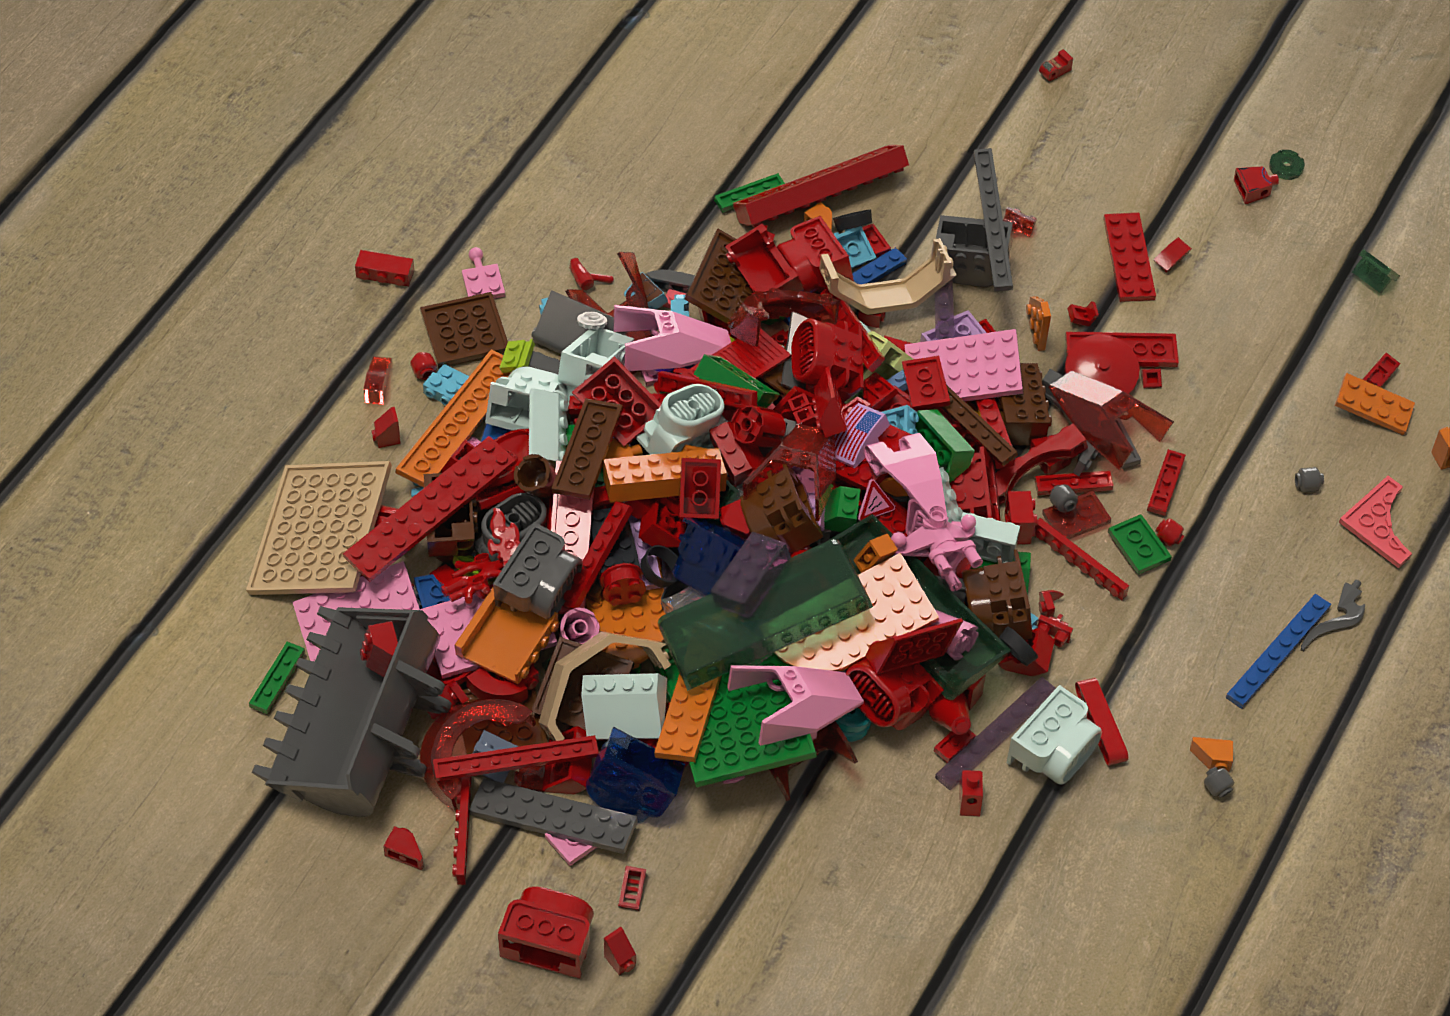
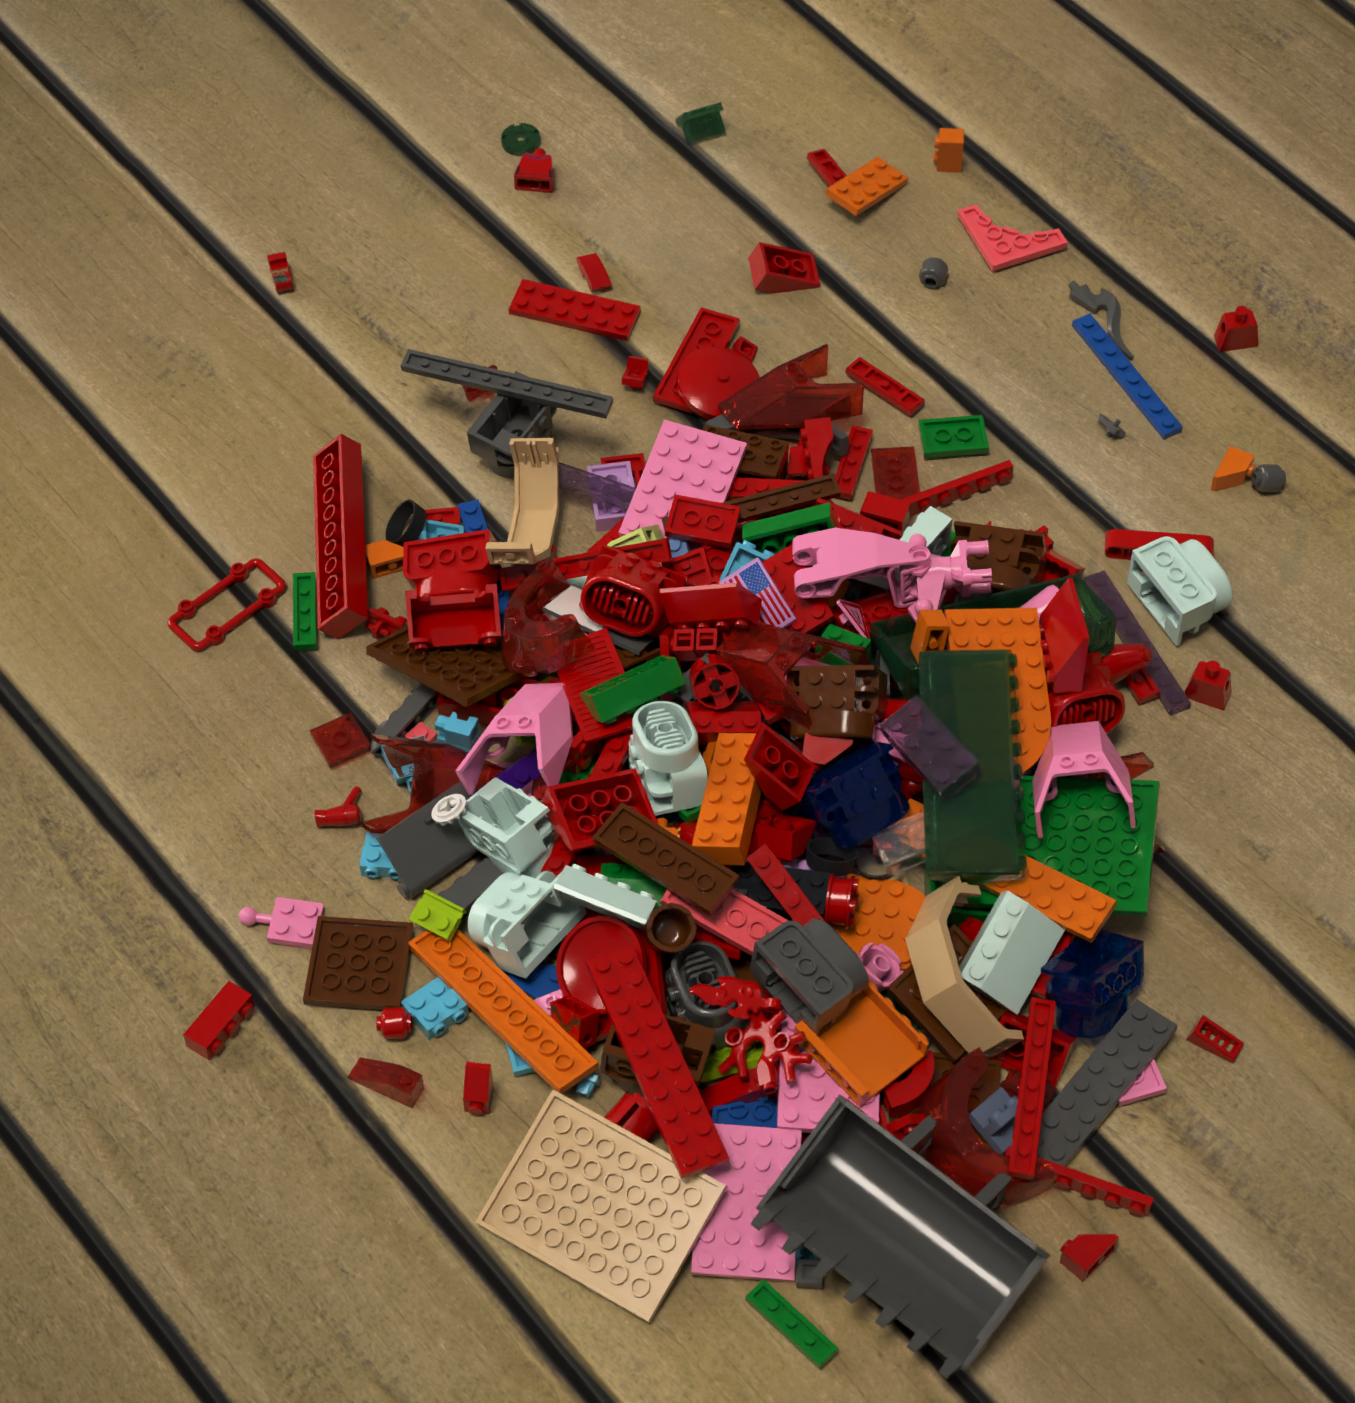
camera: 65 degrees left, 0 degrees up
(379, 647) = (852, 1167): red slope -> none
(547, 930) = (1263, 1128): red brick -> none
(619, 951) = (1302, 1075): red slope -> none
(649, 252) = (340, 740): none -> clear red plate
(719, 128) = (216, 634): none -> red bar
(731, 395) = (620, 727): red tile -> none
(1019, 647) = (1067, 566): black tyre -> none
(1039, 320) = (636, 407): orange plate -> none
(1063, 498) = (878, 472): dark grey head -> none
(1170, 532) = (951, 405): red head -> none
(1214, 652) = (1112, 427): none -> dark grey piece
(1250, 376) = (782, 269): none -> red slope
(1371, 716) = (1237, 330): none -> red torso

